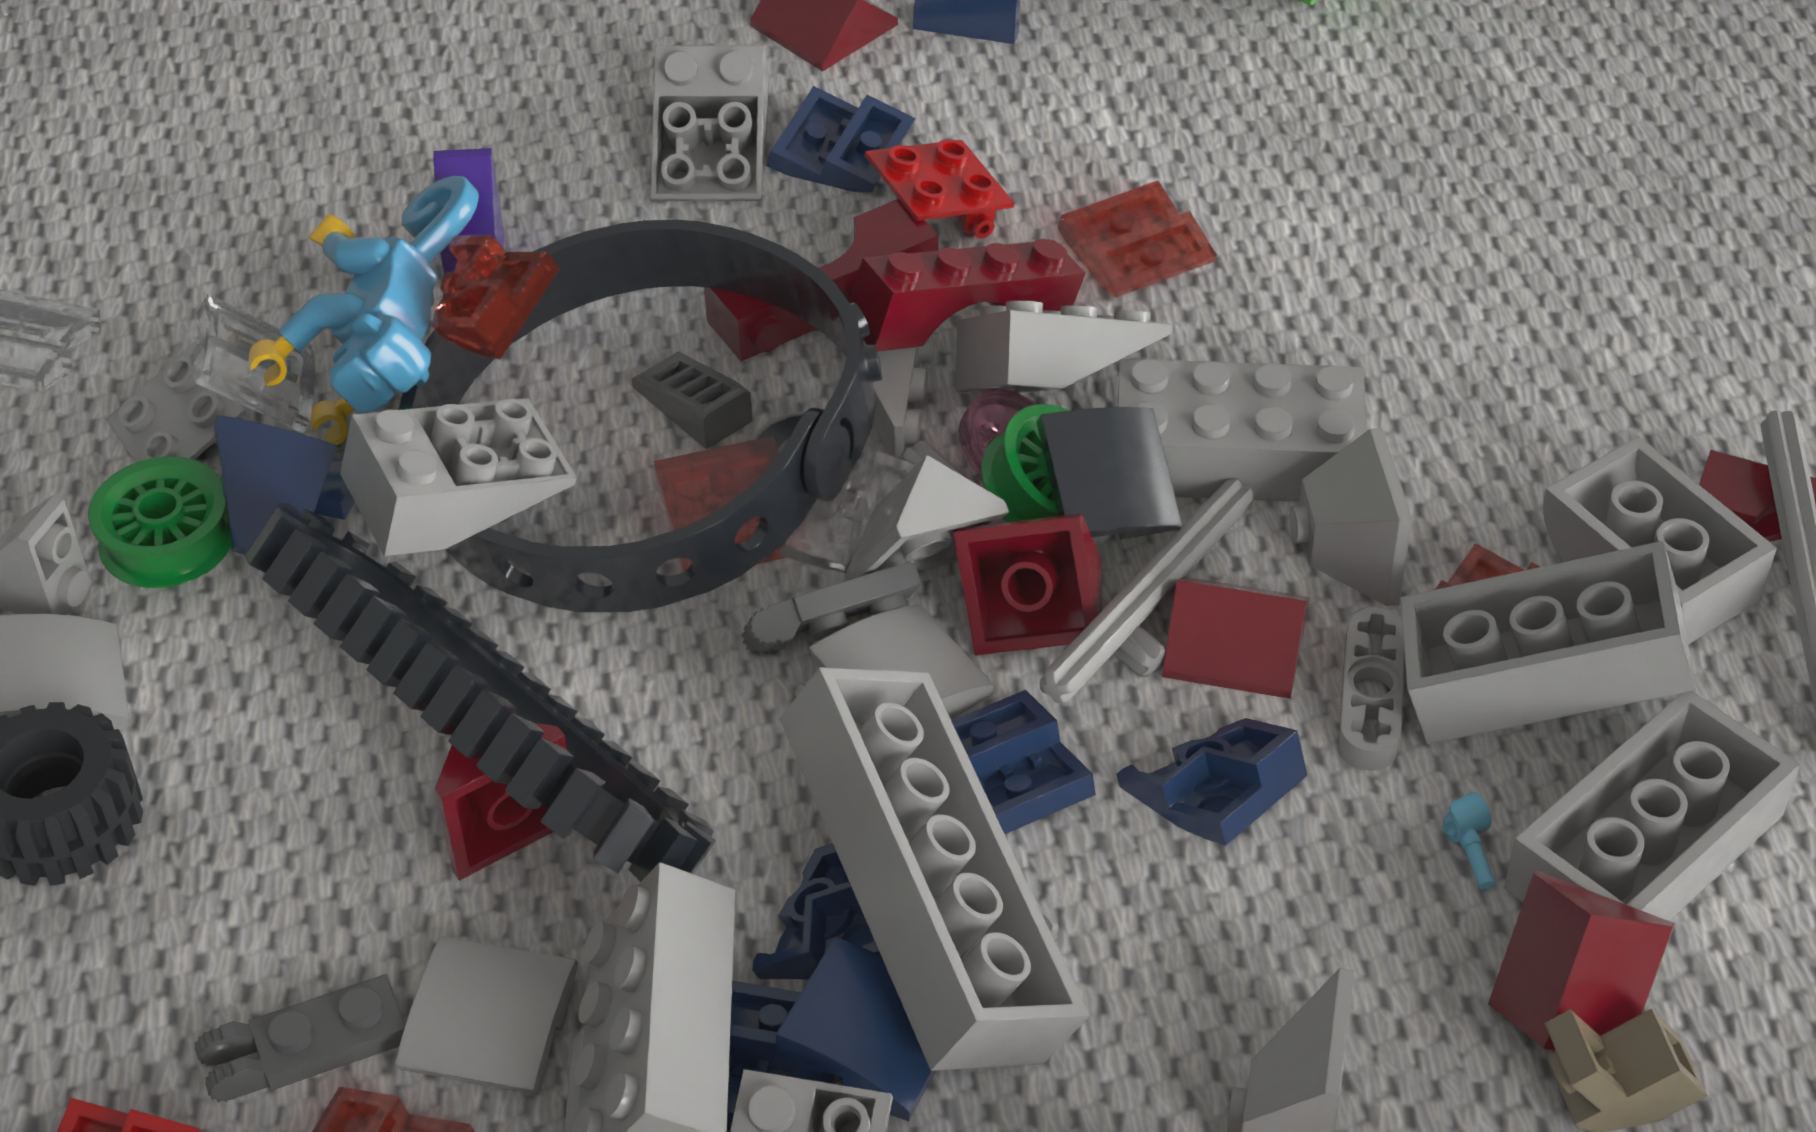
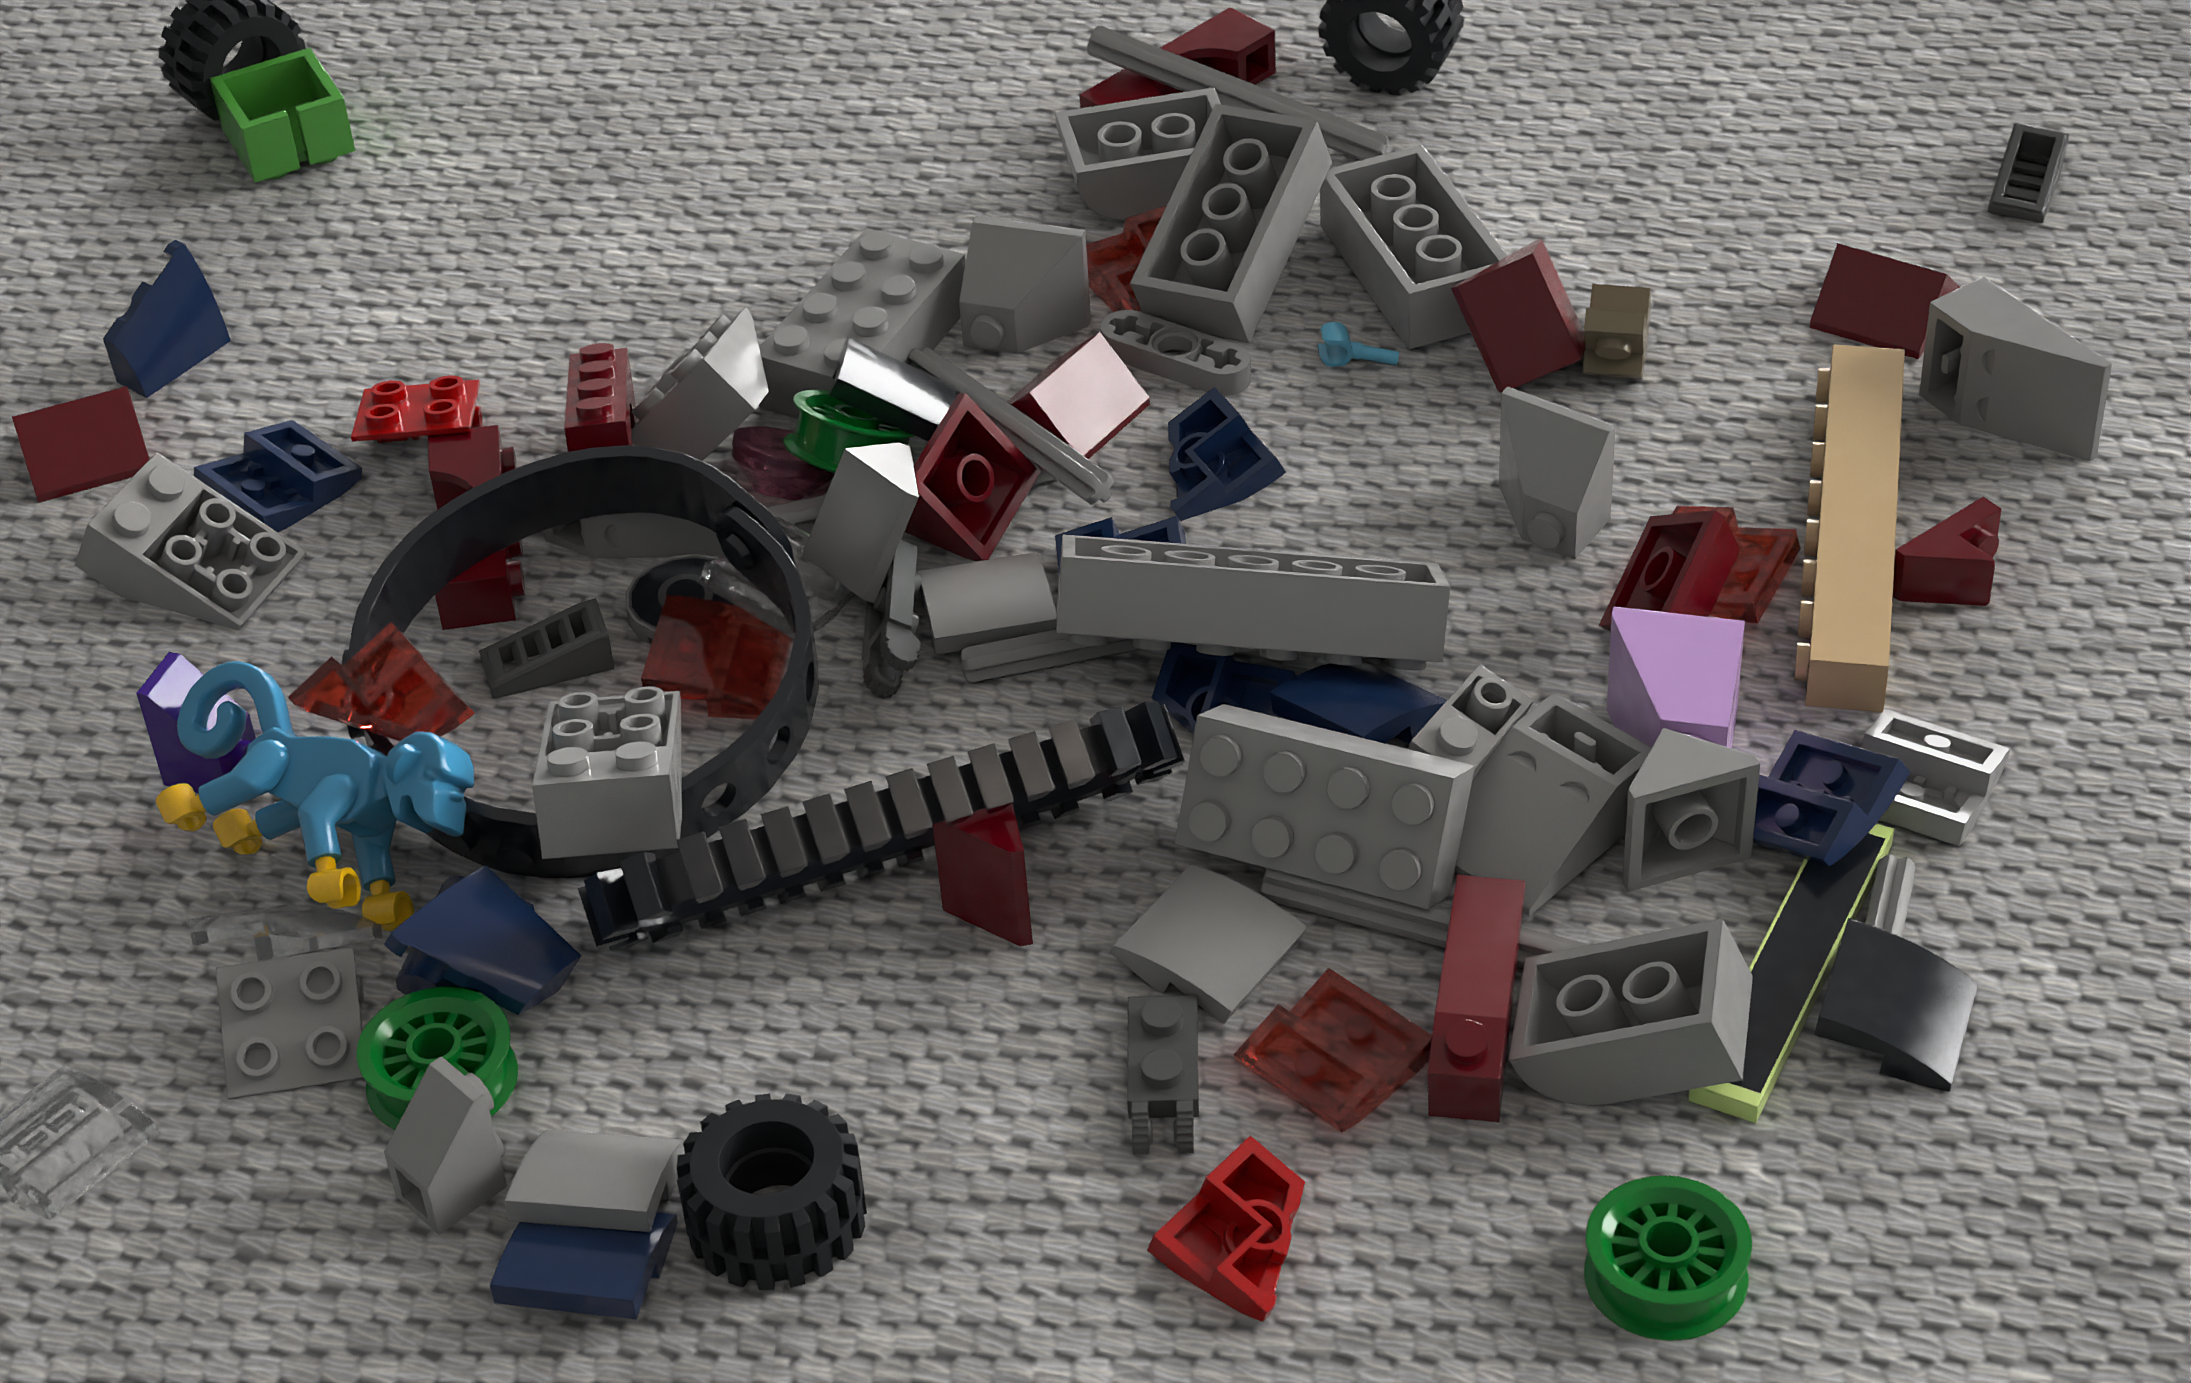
camera: 65 degrees left, 5 degrees down
(1135, 239) = (554, 328): clear red slope -> none

